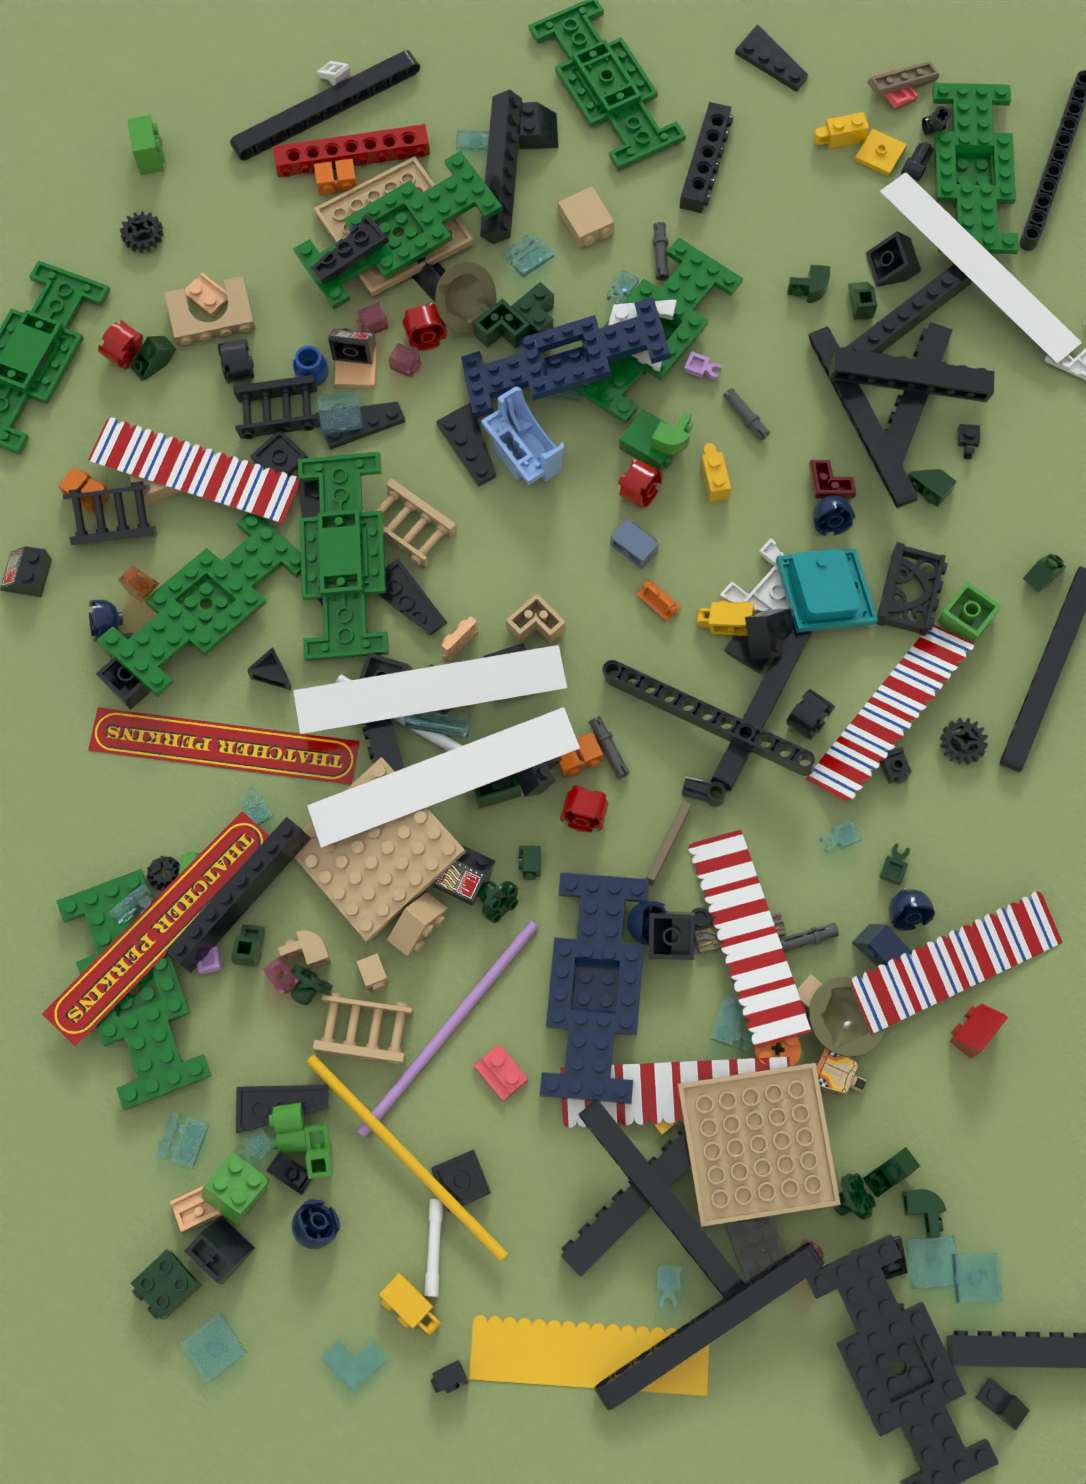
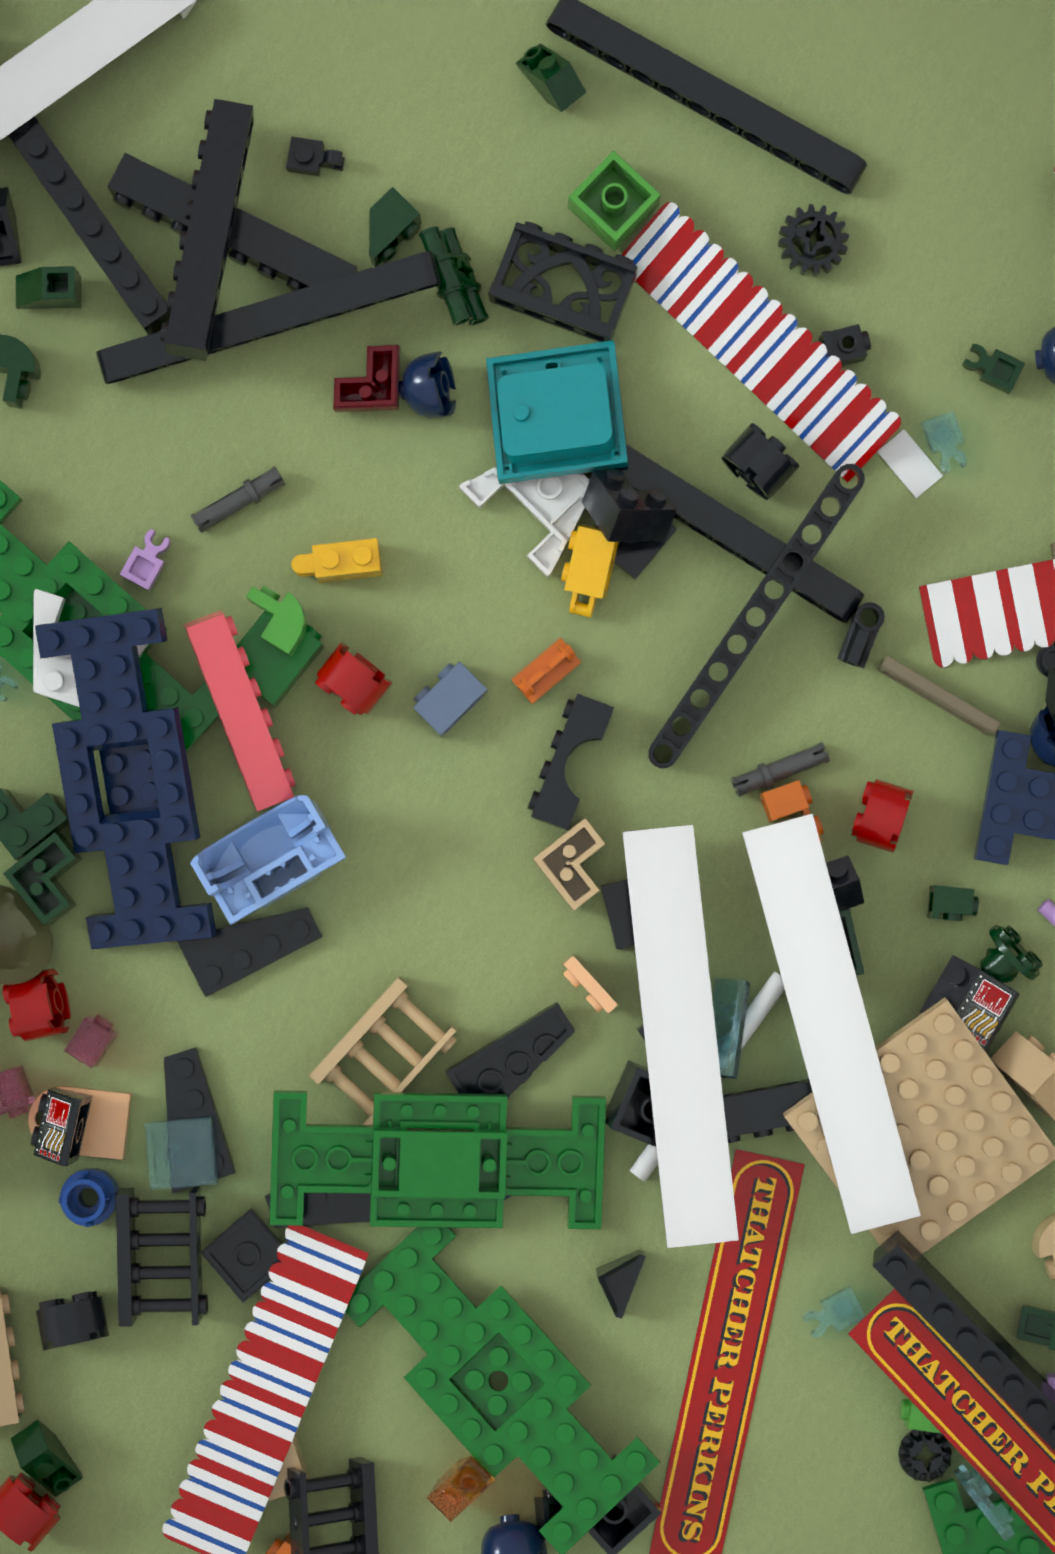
camera: 85 degrees left, 15 degrees up
(578, 610) = (585, 723): none -> black arch
(614, 417) = (239, 710): none -> coral brick
(823, 818) = (910, 463): none -> white sticker
(905, 522) = (457, 276): none -> dark green pin

